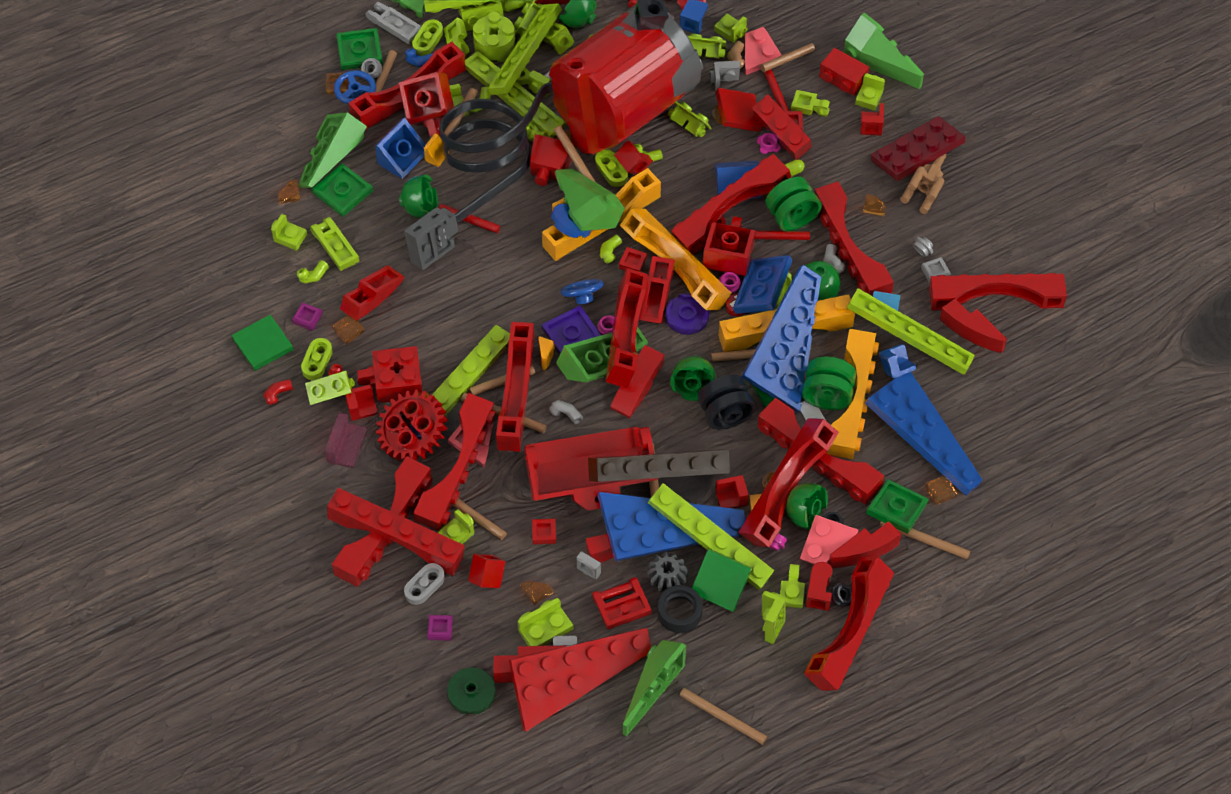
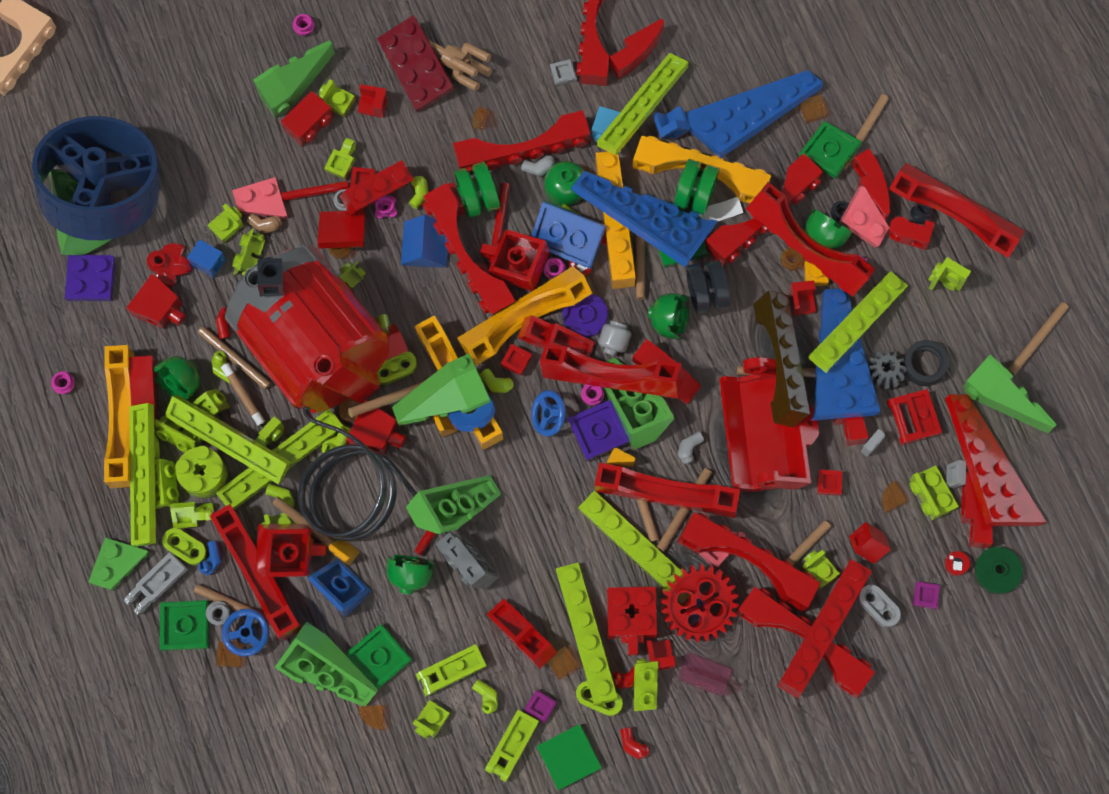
camera: 80 degrees left, 15 degrees up
(270, 296) = (512, 744): none -> lime plate
(376, 339) = (586, 634): none -> lime plate
(474, 652) = (957, 563): none -> red tile
(479, 212) = (452, 505): none -> bright green wedge
(665, 336) = (614, 338): none -> light grey head
(721, 579) = (902, 319): green tile -> none
(724, 71) = (288, 235): light grey bracket -> none
(787, 57) = (278, 172): medium nougat bar -> none
(792, 589) = (912, 258): lime plate -> none
(923, 246) = (536, 78): light grey plate -> none
(940, 58) = (303, 19): none -> dark pink plate

